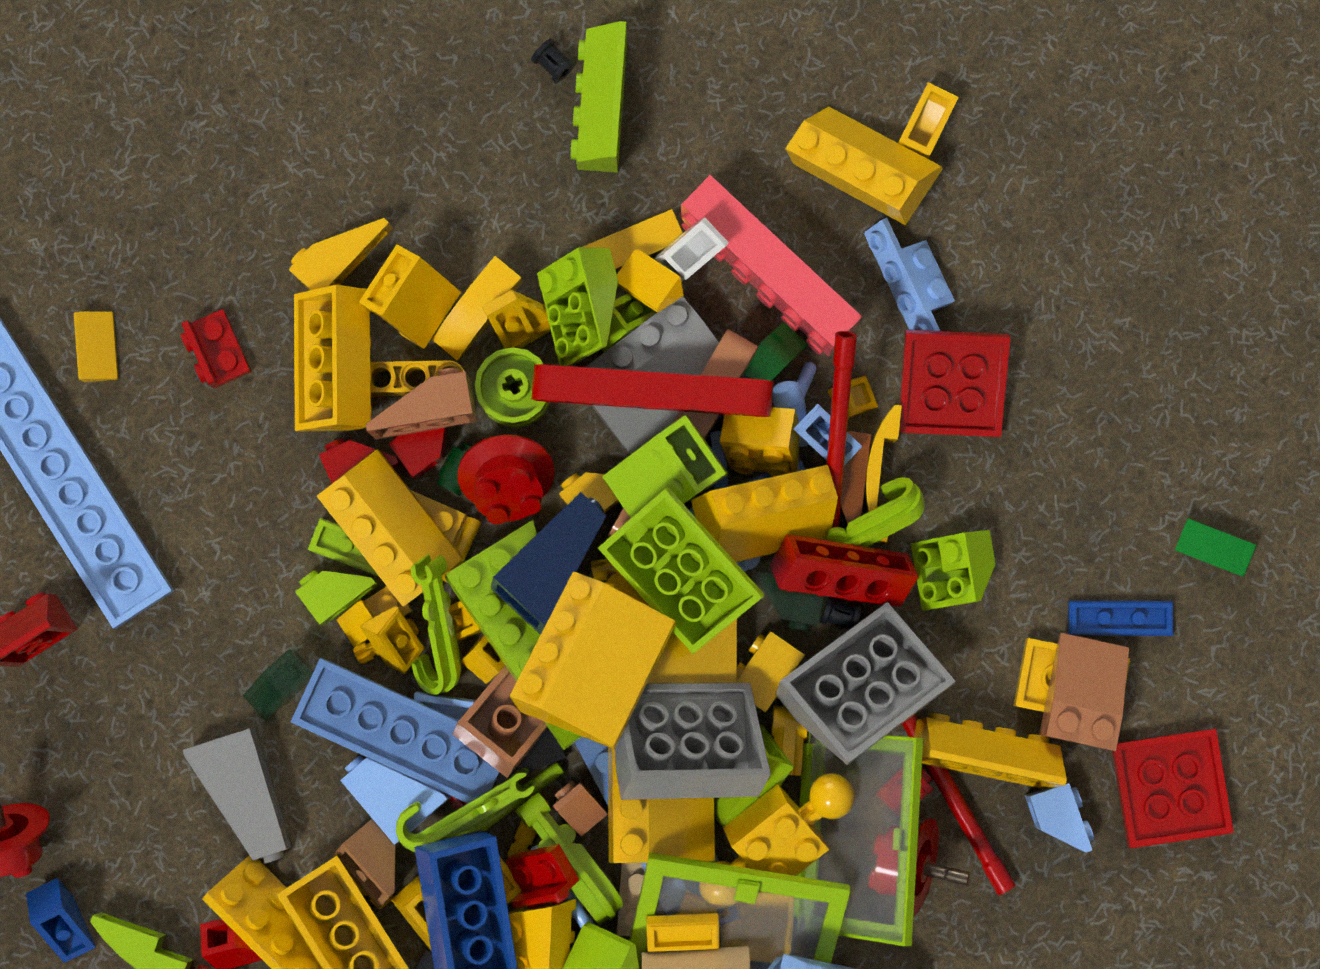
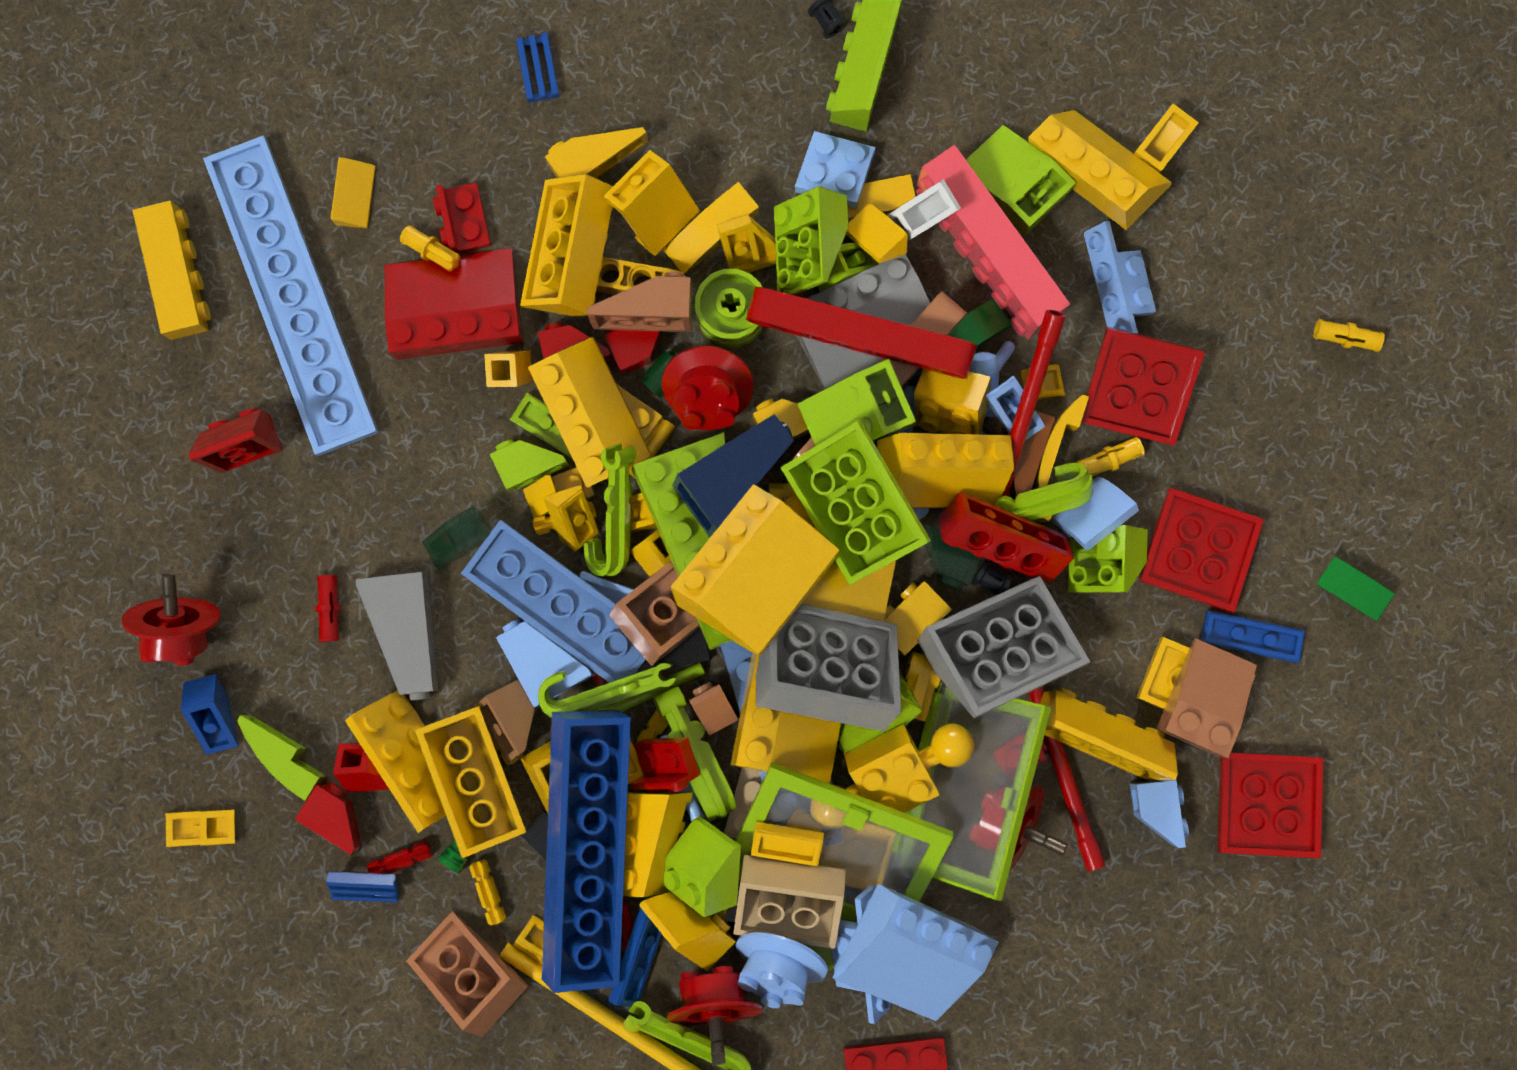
camera: 10 degrees right, 0 degrees up
(159, 785) = (328, 608): none -> red pin
(188, 388) = (429, 248): none -> yellow axle
(223, 441) = (452, 310): none -> red slope
(251, 149) = (532, 42): none -> blue tile
(295, 498) = (508, 368): none -> yellow brick
(593, 218) = (836, 166): none -> light blue plate
(783, 192) = (1020, 178): none -> lime slope
(936, 528) = (1099, 516): none -> light blue slope
(939, 462) = (1112, 457): none -> yellow pin
(1049, 539) = (1201, 550): none -> red plate
(1158, 285) = (1348, 335): none -> yellow pin

